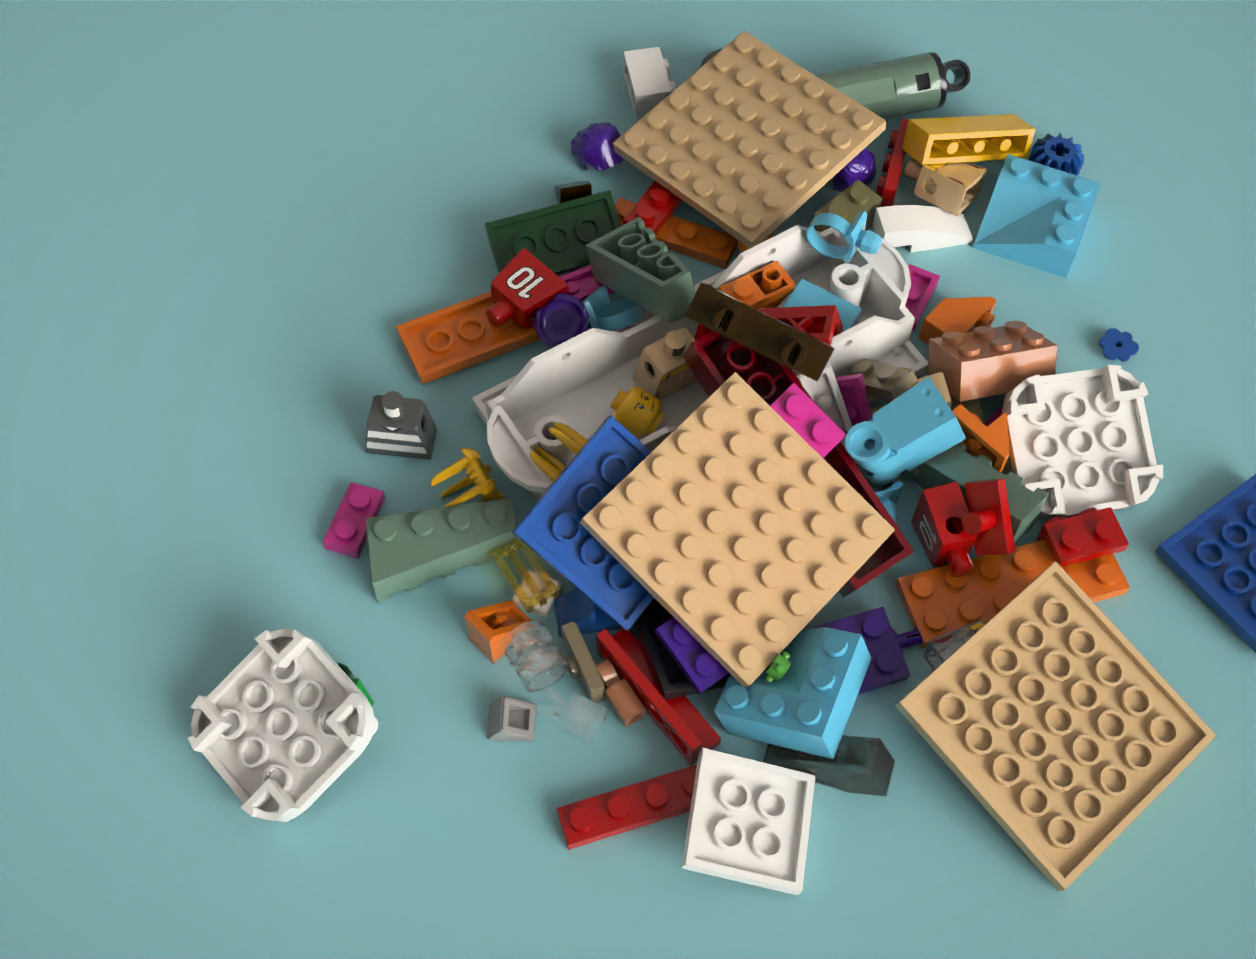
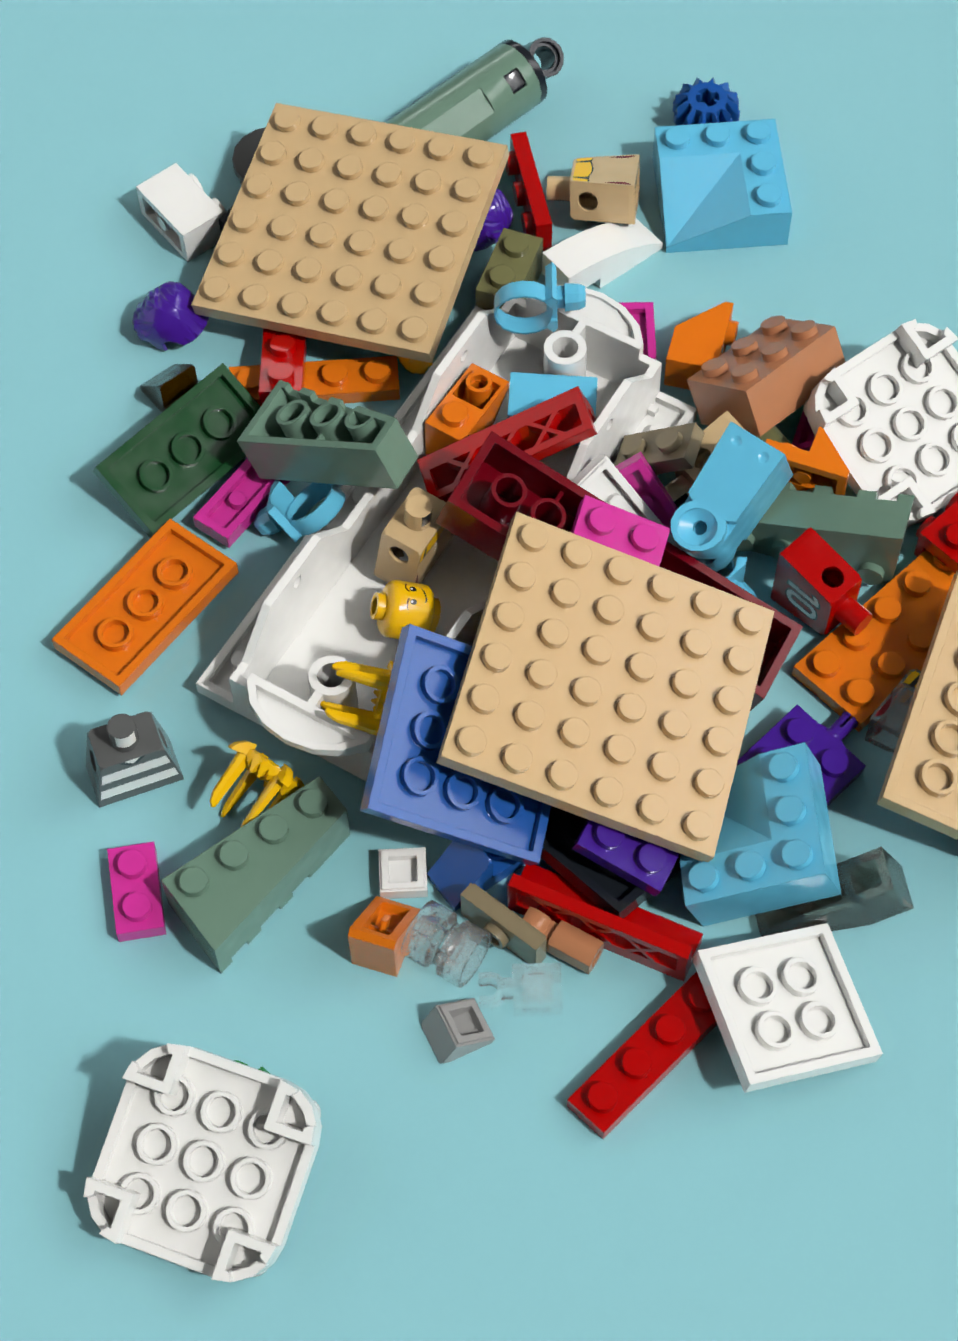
camera: 25 degrees left, 0 degrees up
(522, 290) = (192, 528): red torso -> none
(539, 597) = (413, 876): clear yellow tile -> none
(560, 320) = (257, 546): dark purple hair -> none
(759, 331) = (521, 453): dark brown hose -> none
(778, 667) = (733, 822): bright green piece -> none
(967, 138) = (600, 127): yellow brick -> none
(989, 517) = (864, 550): red tile -> none
(1118, 345) = (885, 297): blue plant -> none

